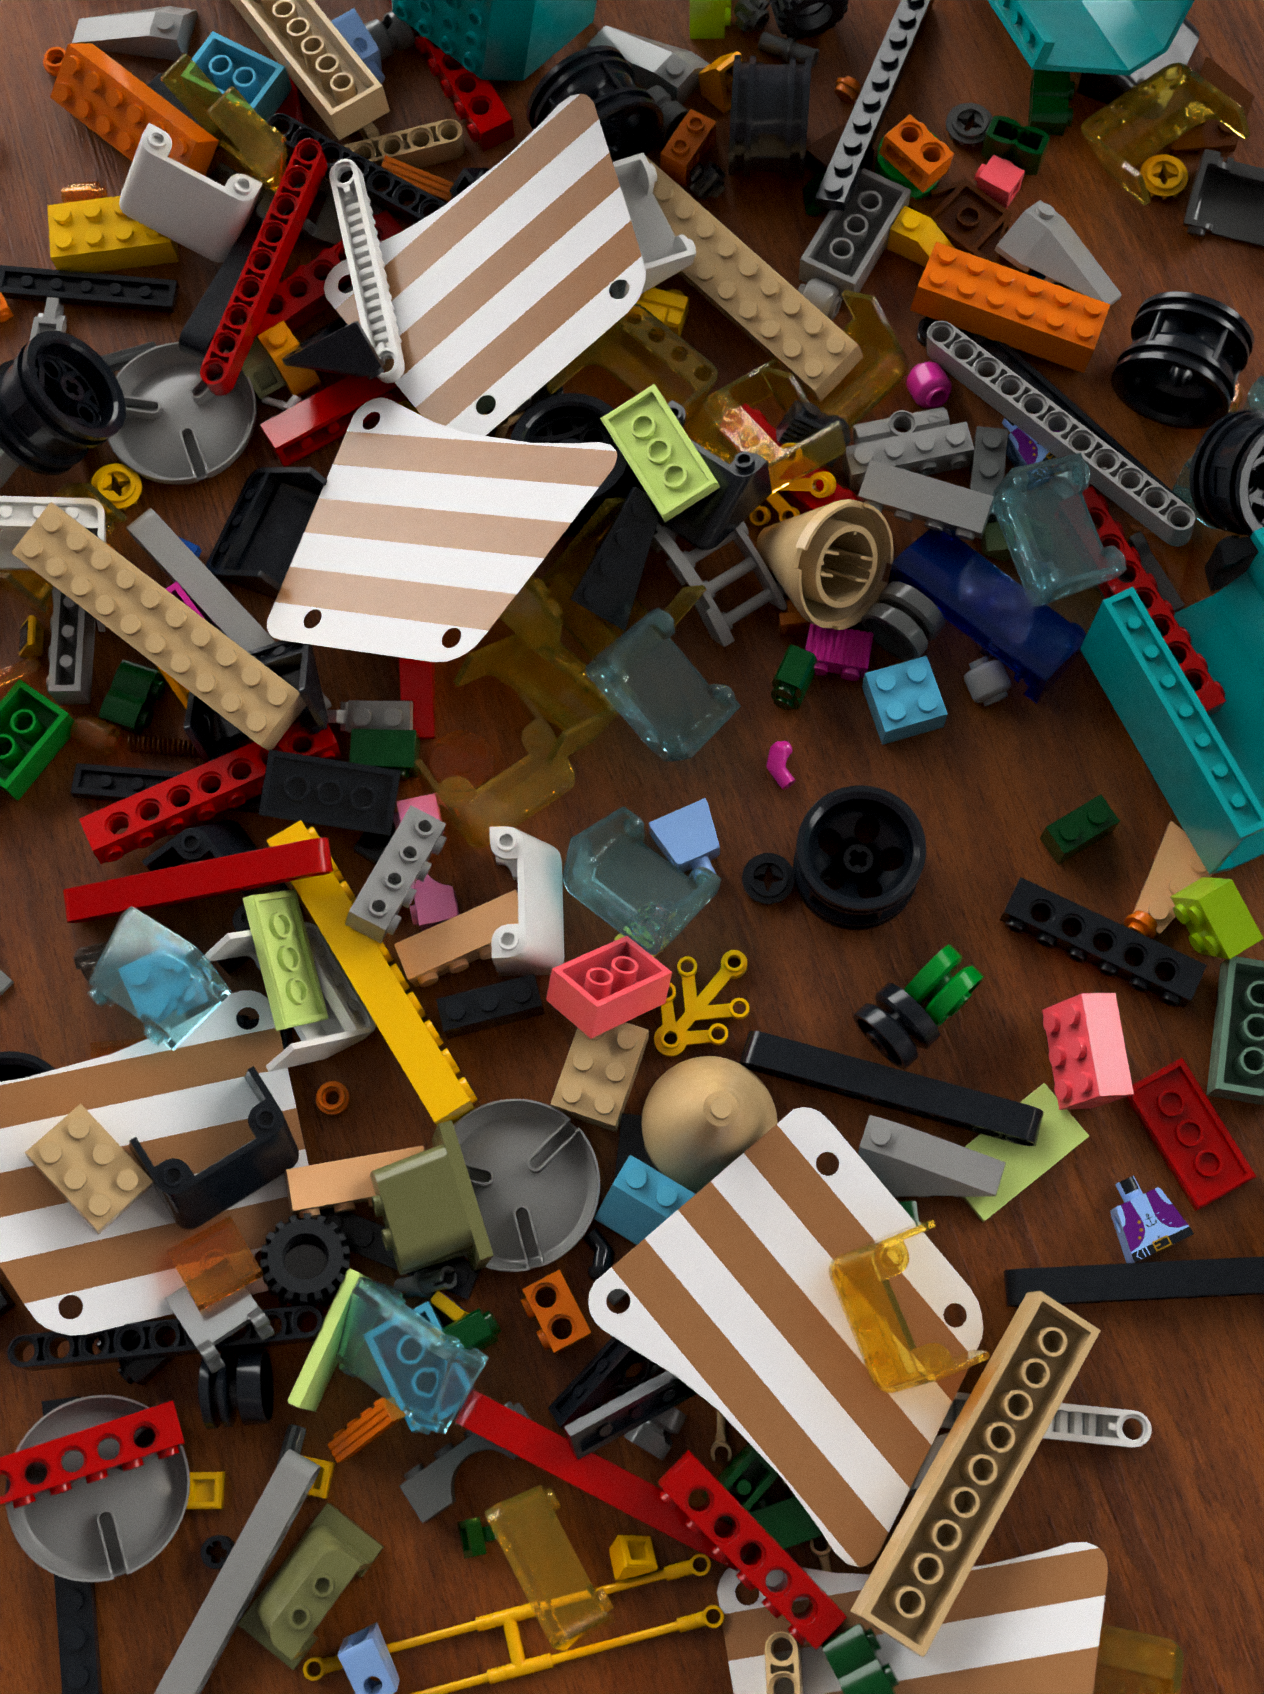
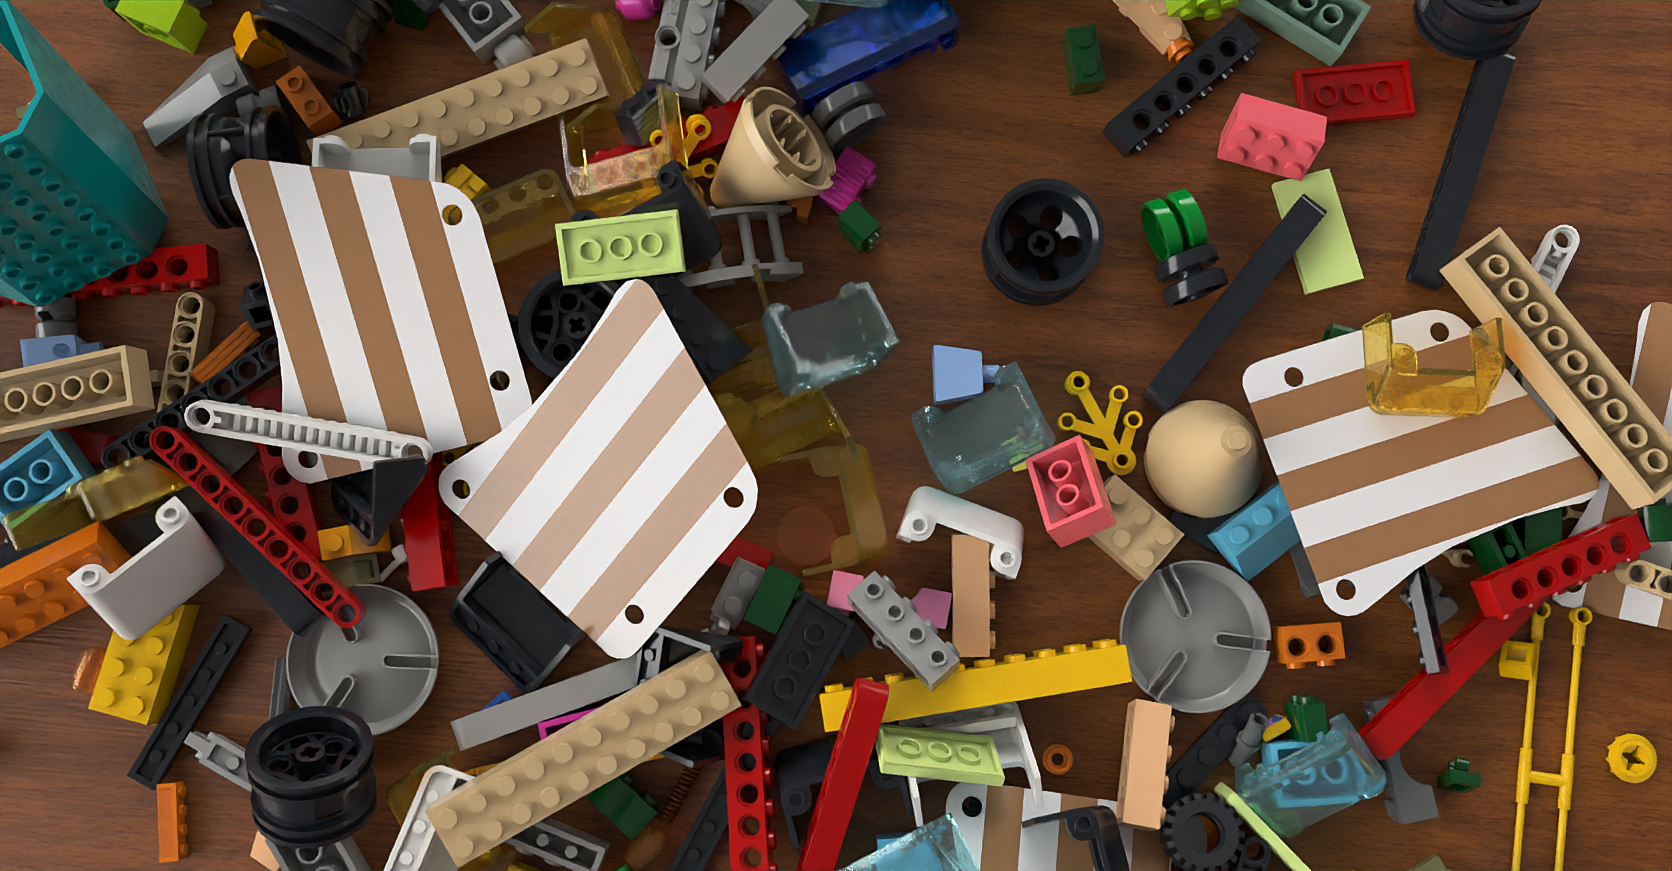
camera: 75 degrees left, 10 degrees up
(124, 477) = (399, 736): yellow gear -> none
(364, 1430) = (1349, 837): orange piece -> none
(431, 1207) = (1199, 711): olive windscreen -> none
(490, 1006) = (1036, 596): black brick -> none
(549, 1567) = (1517, 730): clear yellow windscreen -> none
(599, 1376) = (1381, 643): black fence -> none
(603, 1254) = (1276, 587): black arm -> none
(777, 761) = (920, 274): dark pink arm -> none
(780, 870) = (1031, 321): black gear -> none
(904, 700) = (914, 147): medium azure brick -> none
(926, 1165) = (1304, 306): light grey wedge -> none
(987, 681) = (925, 74): light grey head -> none
(1146, 1221) = (1413, 157): torso -> none

